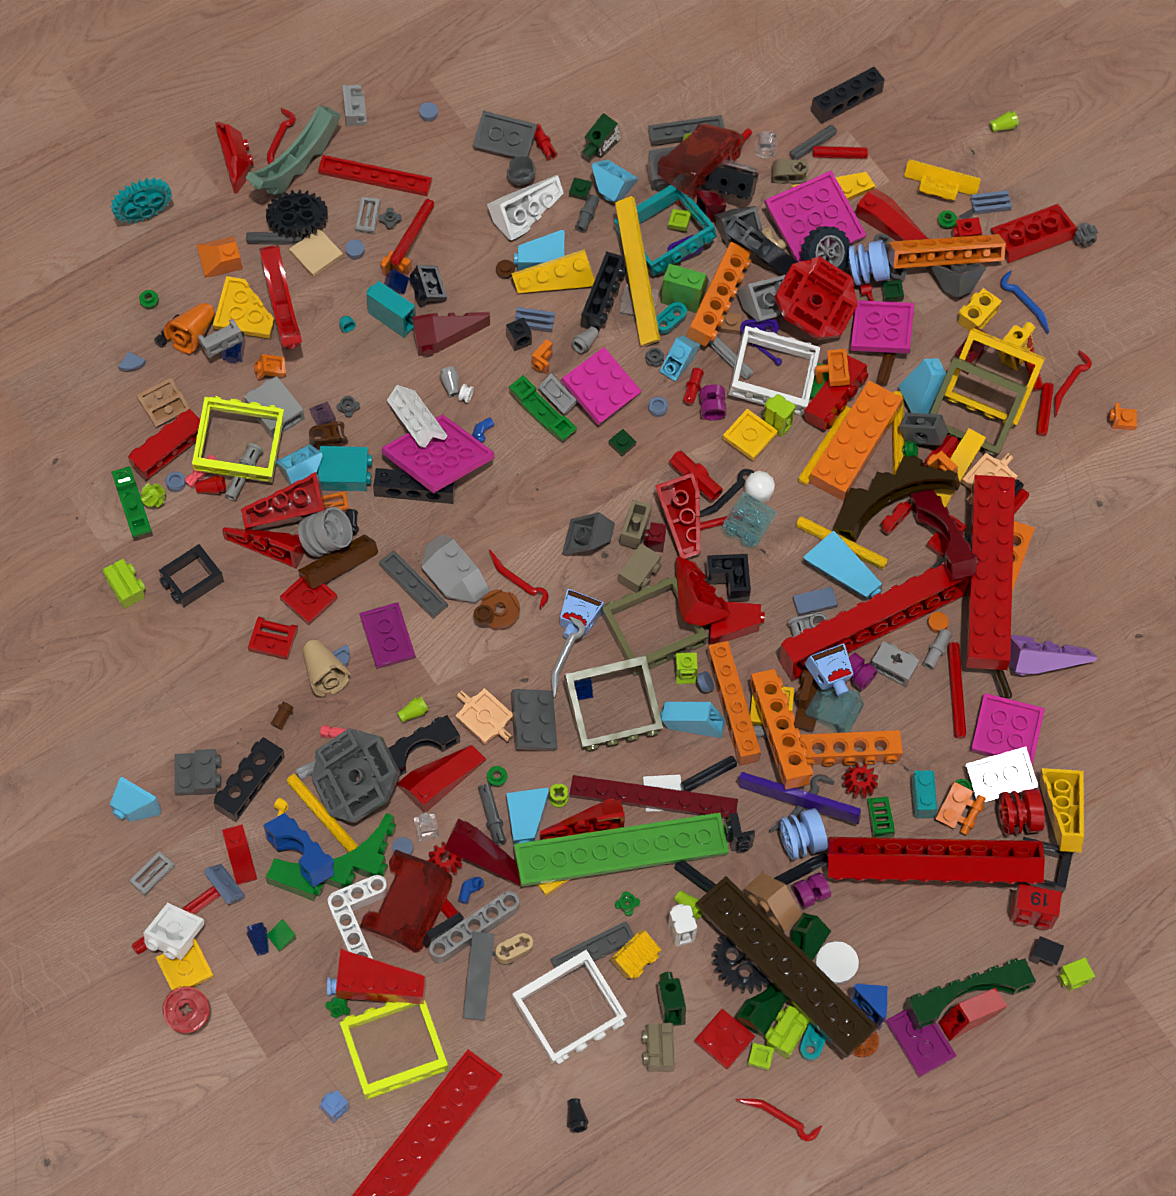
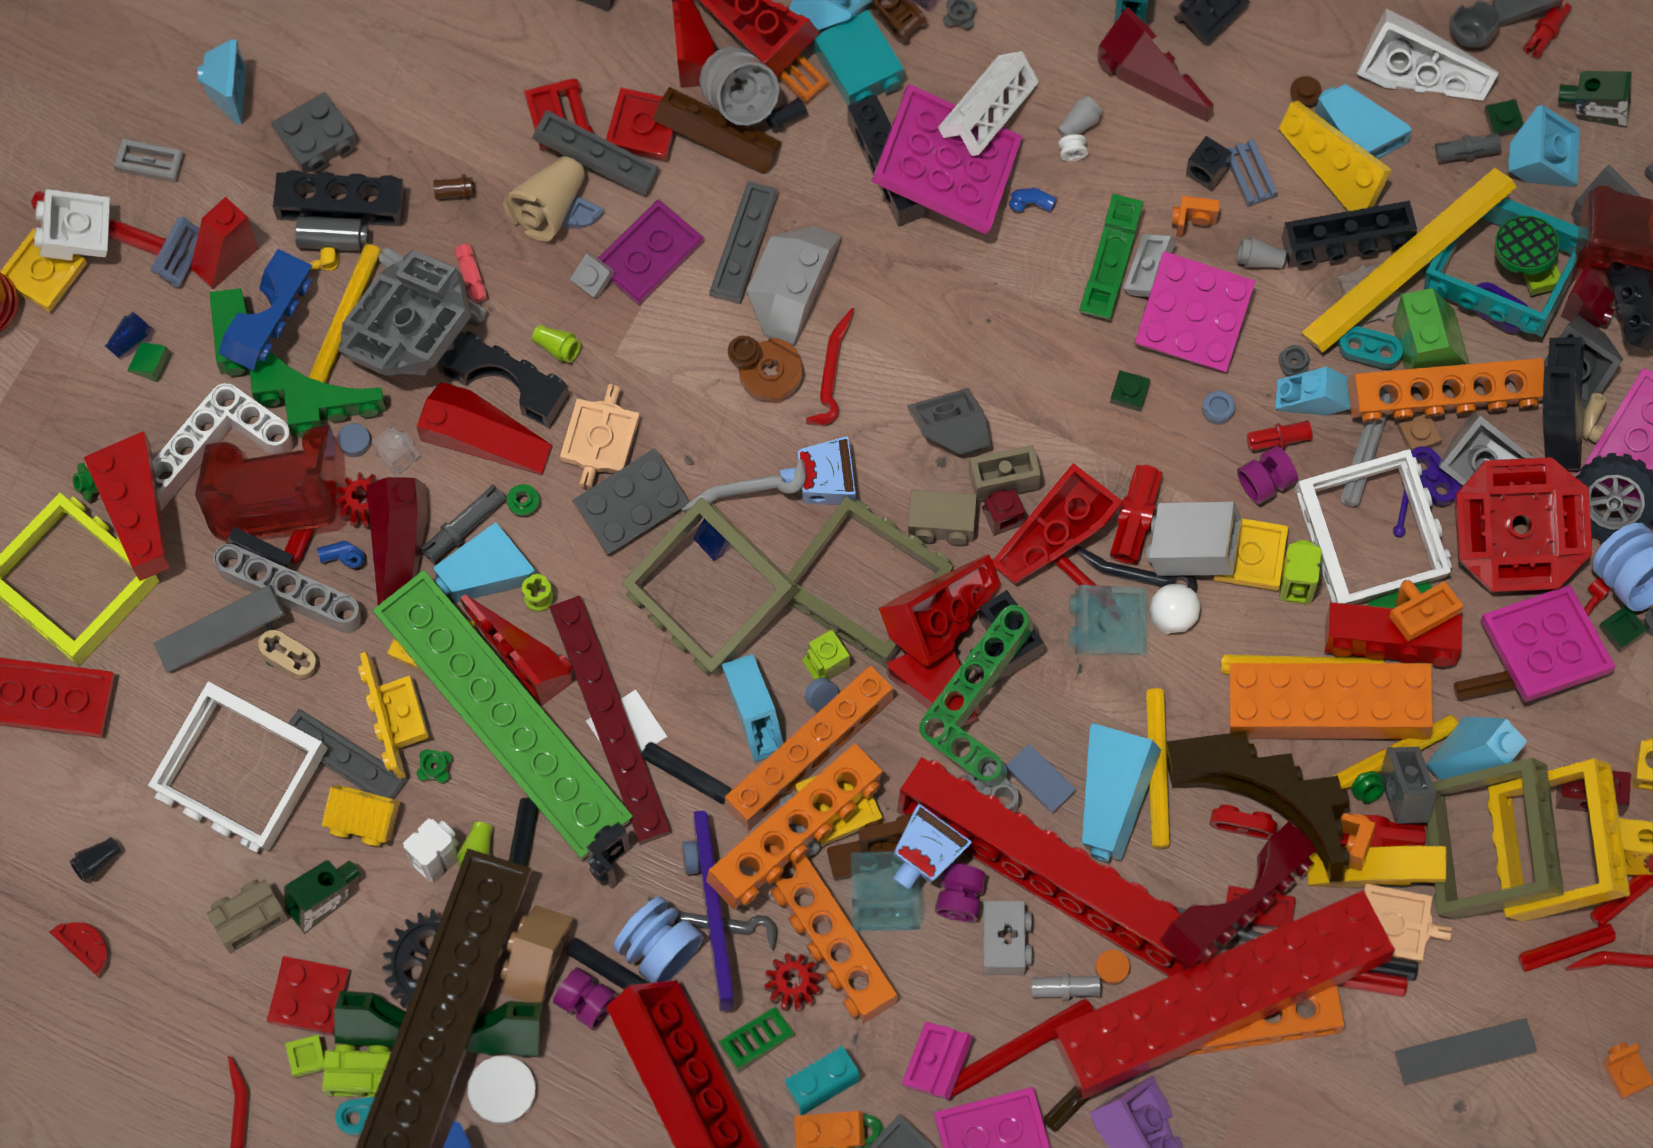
camera: 65 degrees right, 5 degrees up
(267, 794) = (331, 232): none -> dark grey brick
(312, 629) = (595, 152): none -> dark grey tile
(384, 670) = (592, 275): none -> light grey plate
(585, 904) = (397, 713): none -> yellow bracket
(624, 1147) = (84, 943): none -> red plate
(666, 212) = (1526, 244): none -> tile
(730, 453) = (1194, 538): none -> light grey brick
(758, 601) = (973, 694): none -> green beam
(760, 796) = (690, 857): none -> sand blue tile
(944, 731) = (937, 1060): none -> dark pink plate
(1073, 484) = (1465, 1051): none -> dark grey tile

